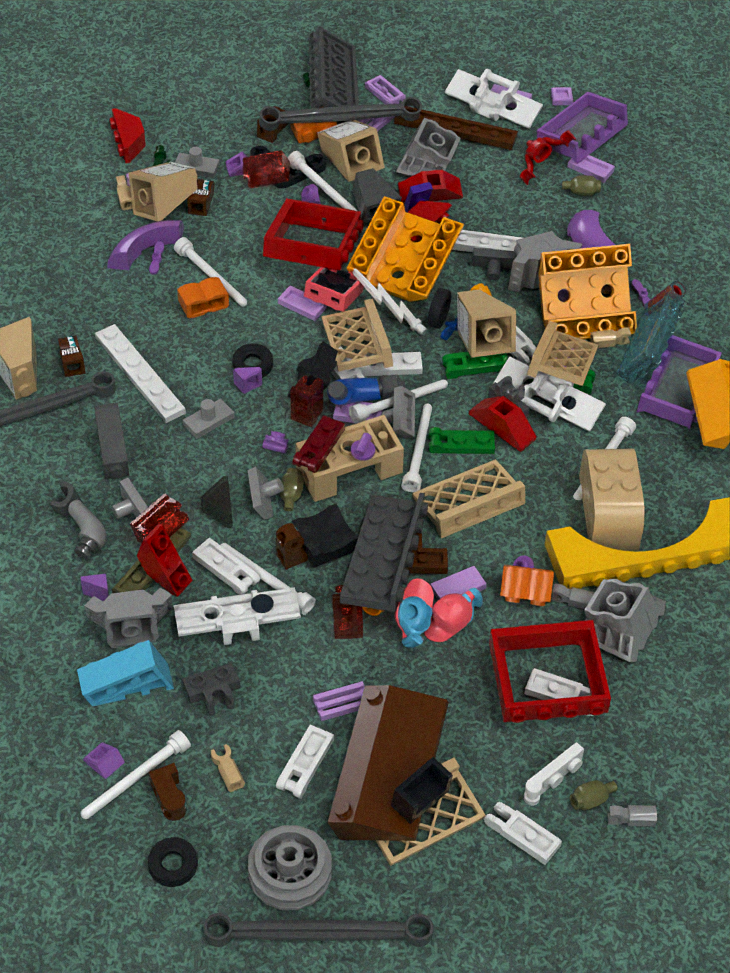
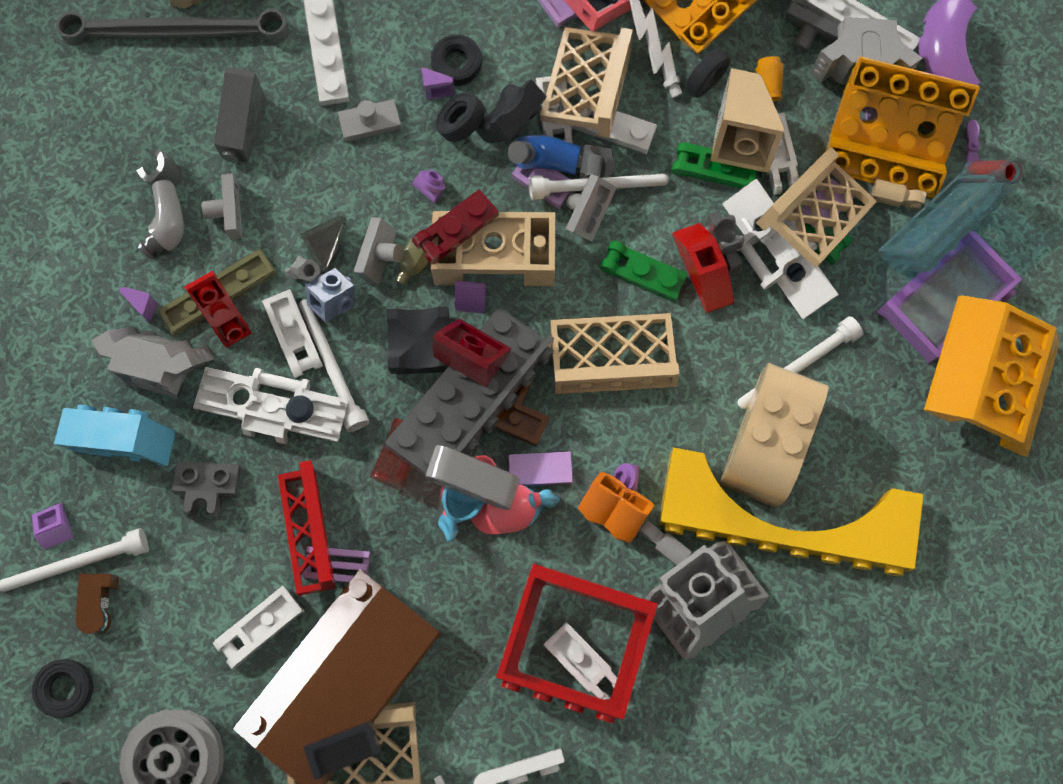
camera: 25 degrees right, 25 degrees up
(162, 511) = (241, 247): clear red hinge -> none
(214, 519) = (303, 269): none -> light grey bar
(228, 769) = (173, 598): tan bar -> none
(243, 529) = (330, 294): none -> sand blue brick
(270, 386) = (453, 109): none -> black tyre
(289, 546) = (370, 341): reddish brown leg -> none
(306, 401) = (484, 152): clear red hinge -> none
(315, 674) = (317, 528): none -> red fence
(346, 496) = (470, 297): none -> medium lavender slope
(363, 448) = (503, 255): medium lavender plate -> none
(370, 521) = (469, 351): none -> dark red slope
(412, 480) = (558, 302): white piece -> none
(419, 585) = (472, 477): none -> light grey beam
(452, 326) = (707, 106): blue piece -> none

